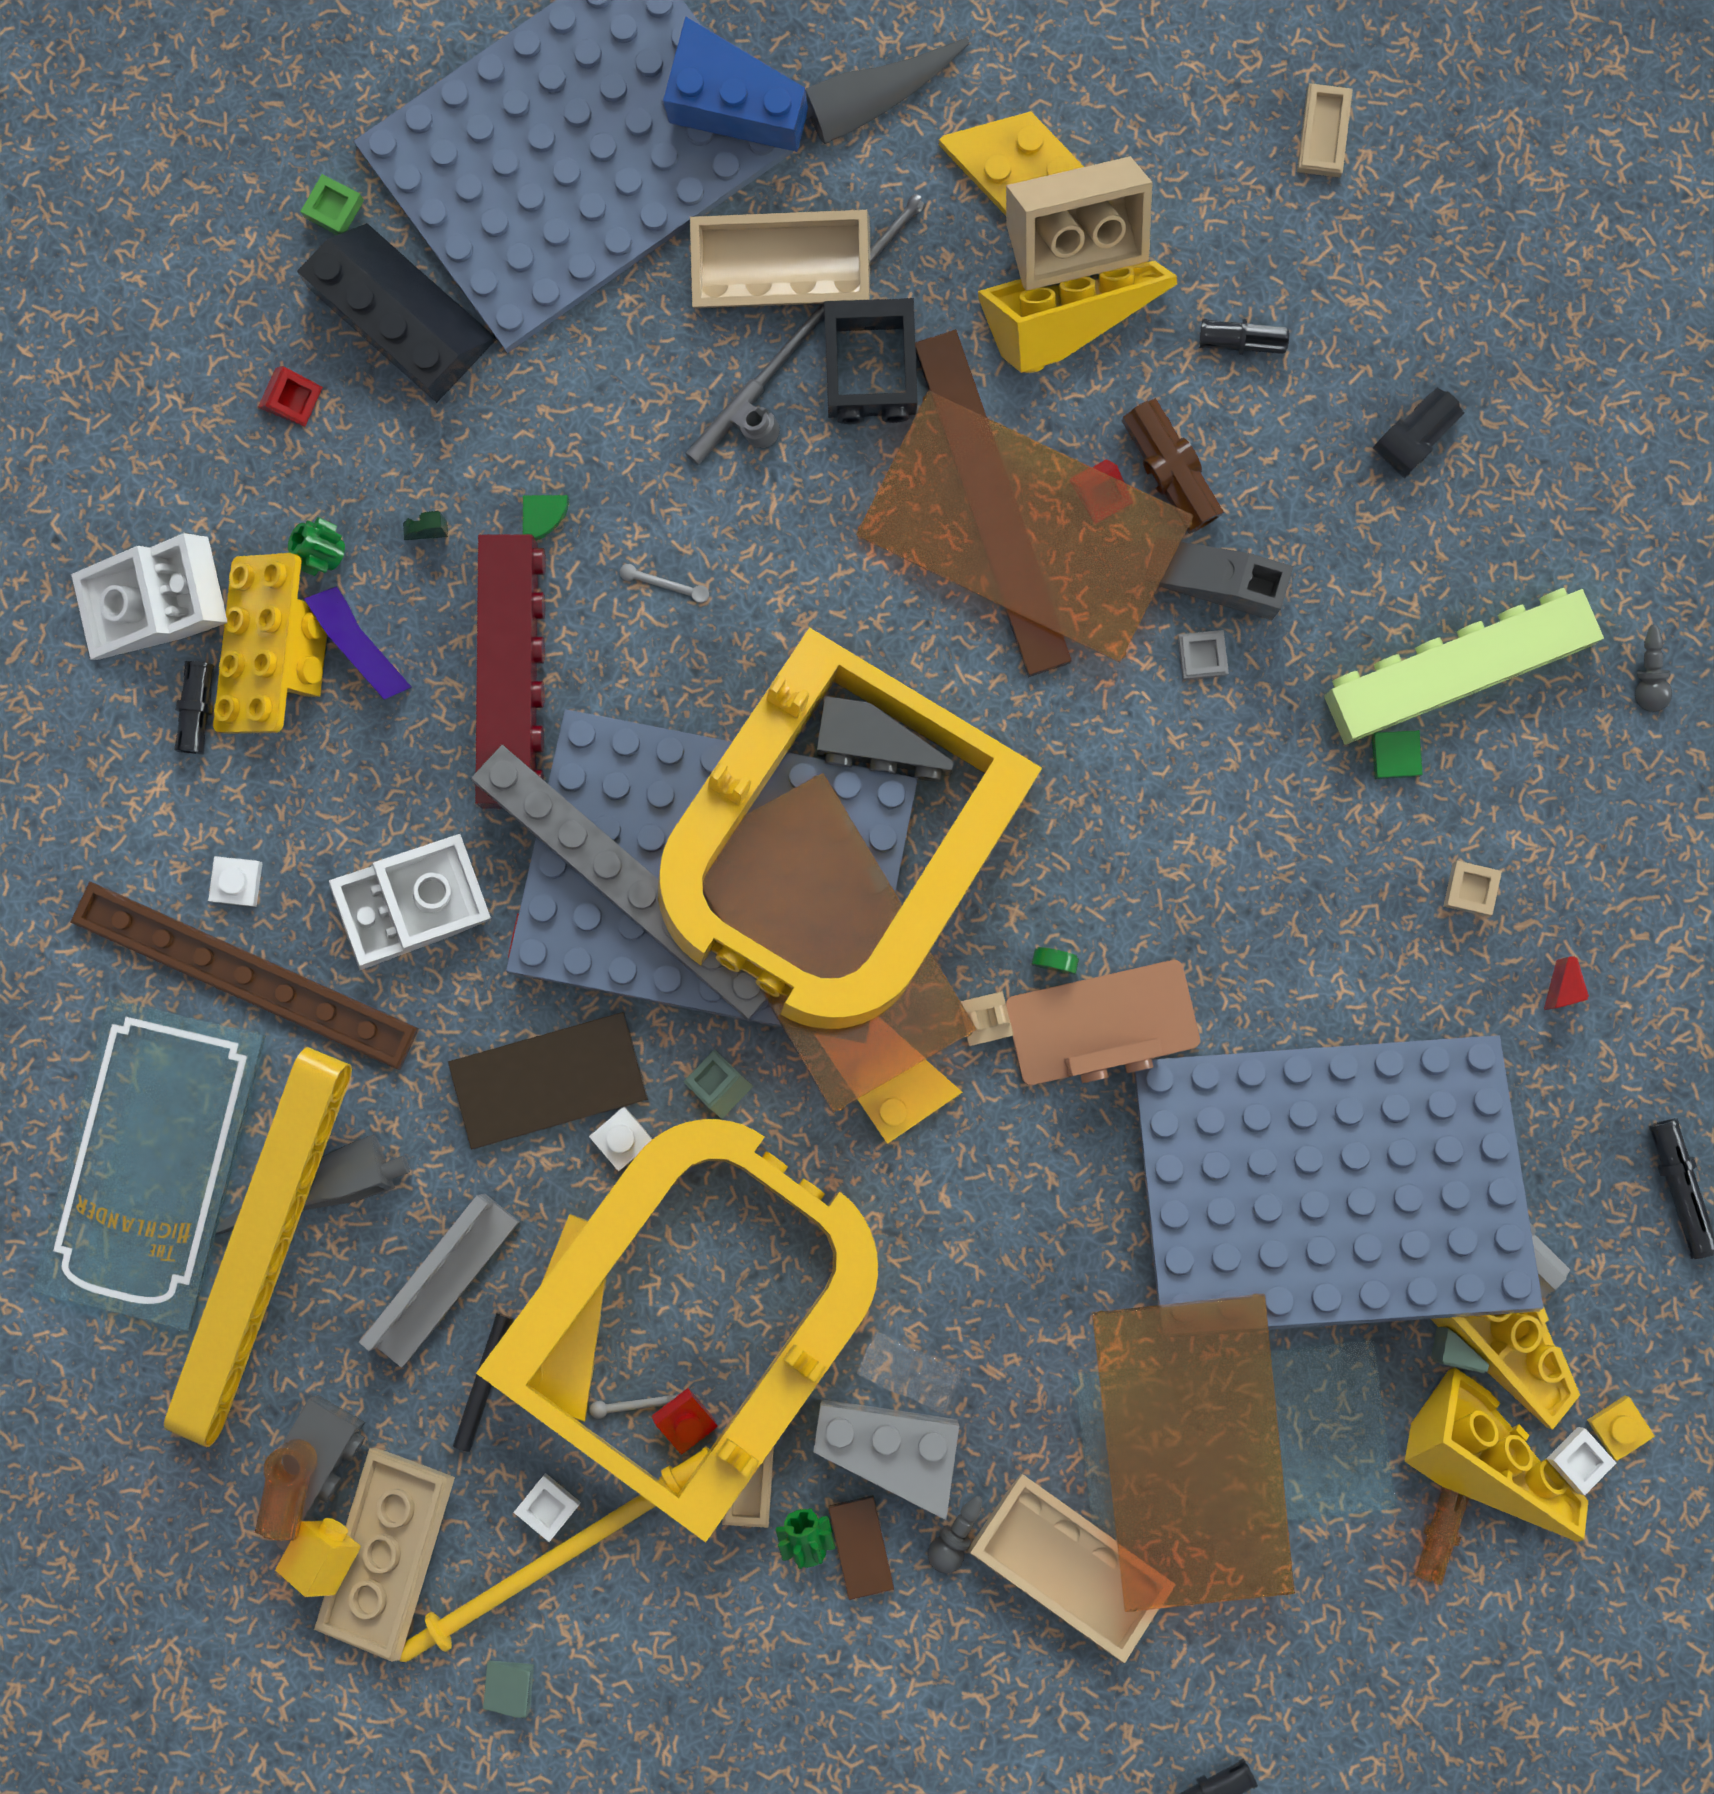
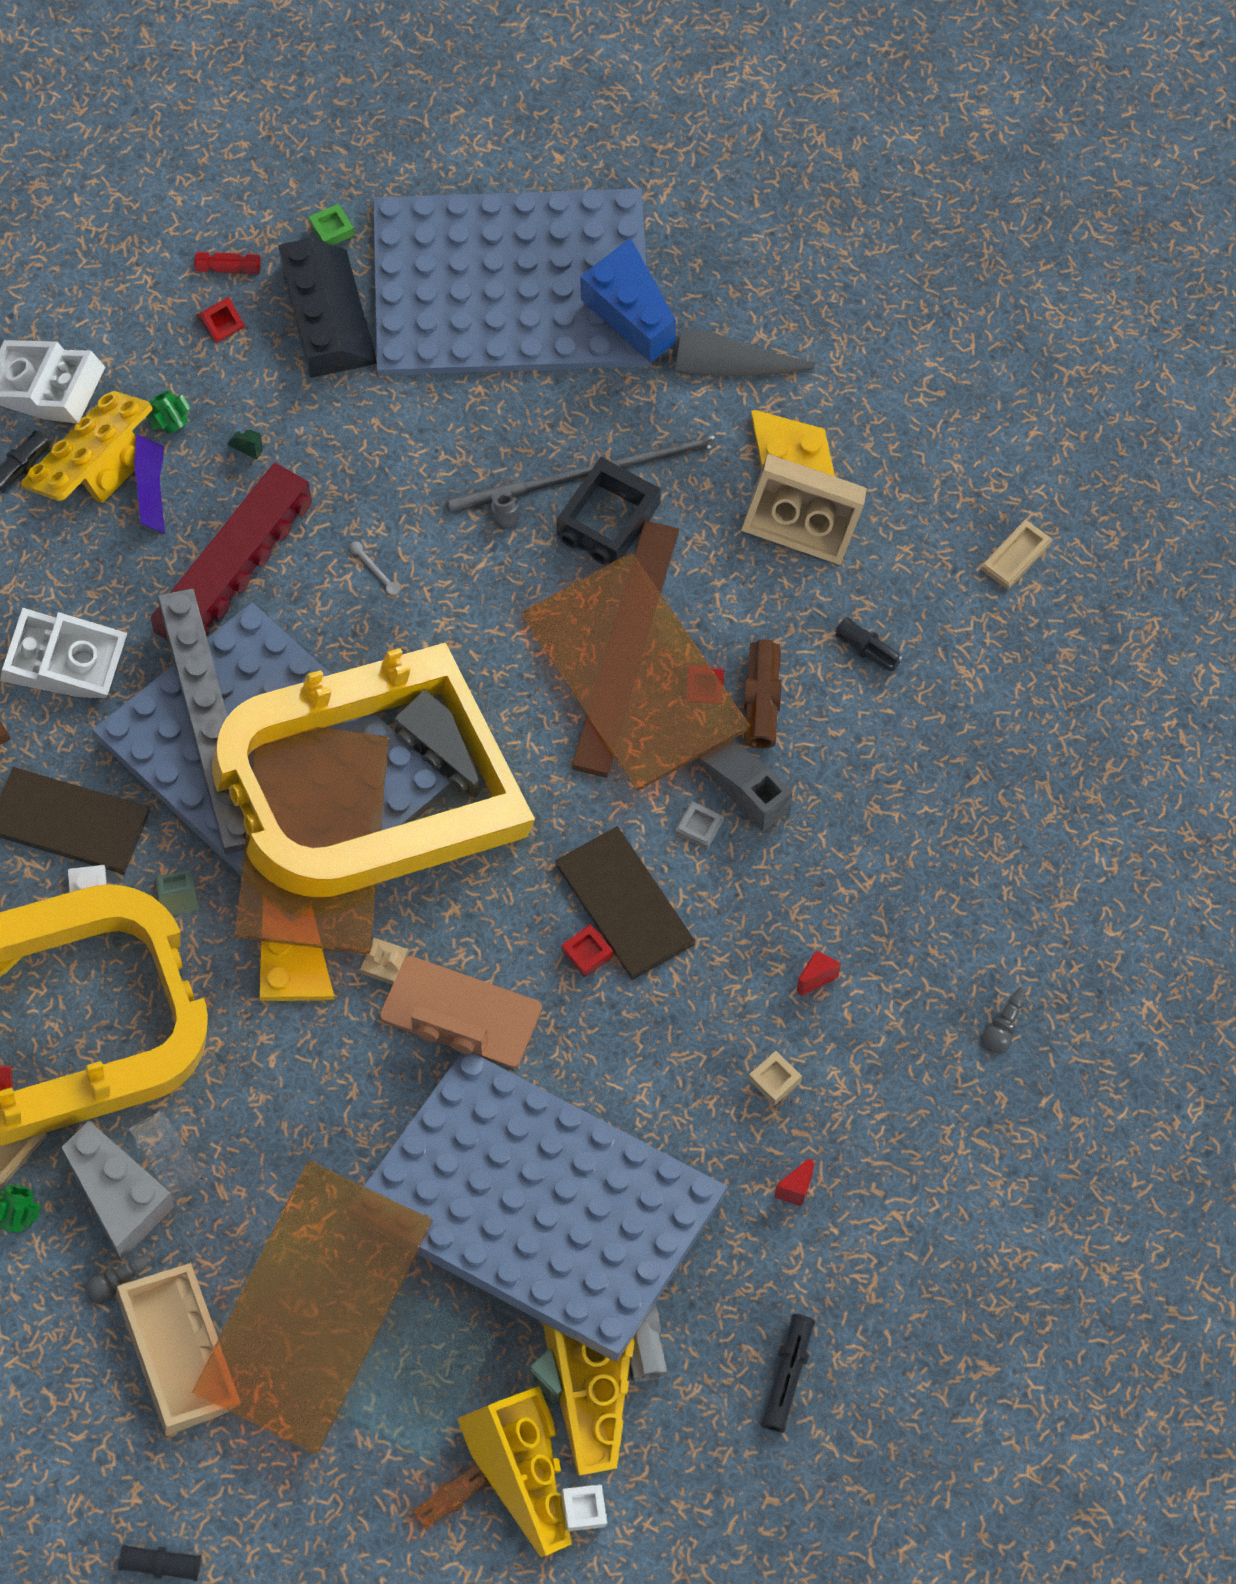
camera: 30 degrees right, 20 degrees down
(248, 322) = (227, 262): none -> red axle
(543, 513) = (327, 480): green tile -> none
(780, 258) = (594, 418): tan slope -> none
(861, 1547) = (47, 1245): reddish brown tile -> none
(1055, 960) = (457, 950): green tile -> none
(1057, 320) = (744, 560): yellow wedge -> none
(1185, 792) = (625, 902): none -> dark brown tile
(1185, 872) = (587, 950): none -> red plate
(1397, 754) = (786, 967): green tile -> none
(1412, 439) = (939, 774): black piece -> none
(1434, 743) = (818, 972): none -> red slope
(1462, 666) = (871, 934): yellowish green brick -> none
(1621, 1428) = (629, 1508): yellow plate -> none

